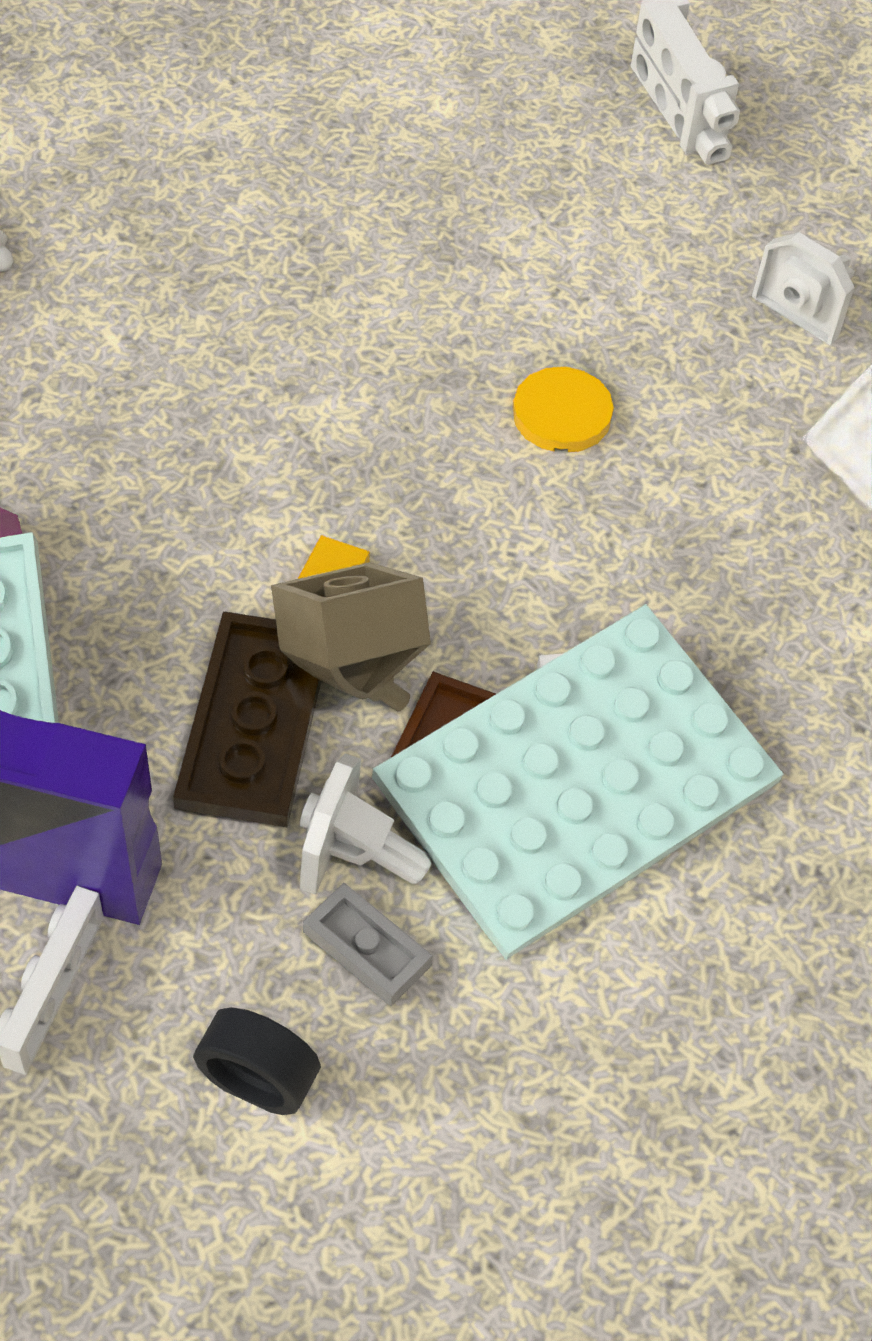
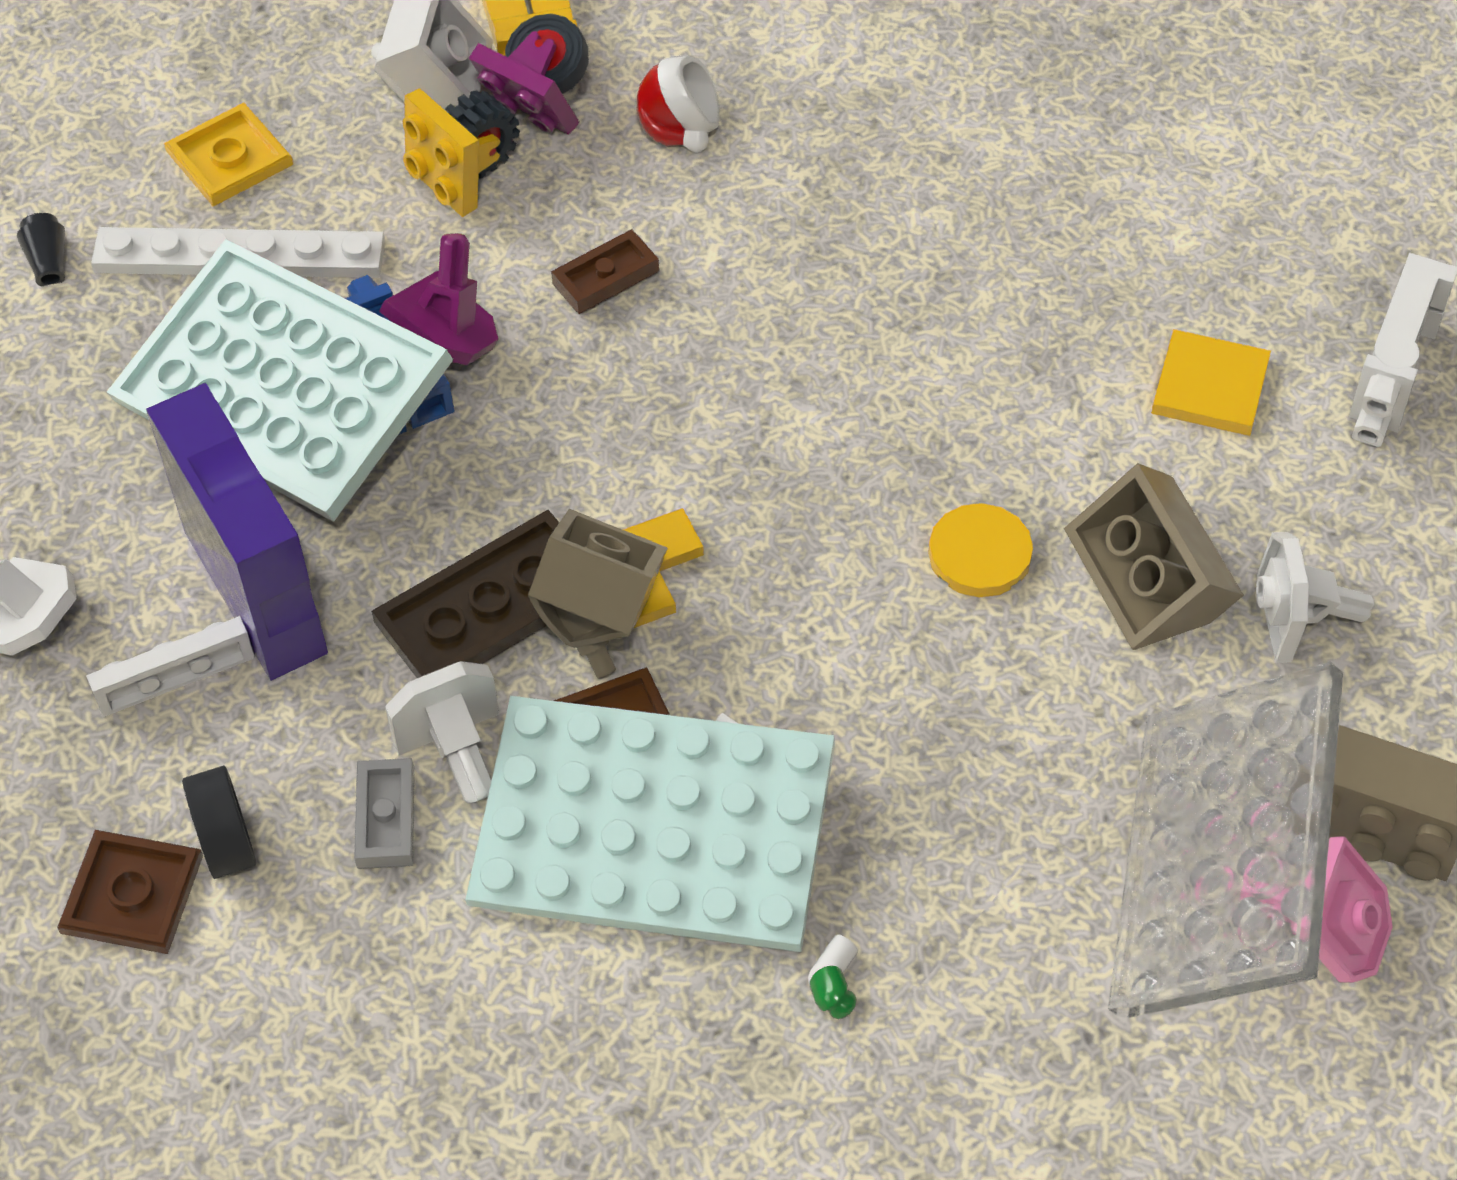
camera: 50 degrees right, 0 degrees up
(46, 404) = (605, 271): none -> reddish brown plate
(227, 1190) = (130, 891): none -> reddish brown tile
(577, 188) = (1211, 382): none -> yellow tile
(685, 331) = (1152, 558): none -> dark tan slope
(821, 785) = (828, 981): none -> green arm

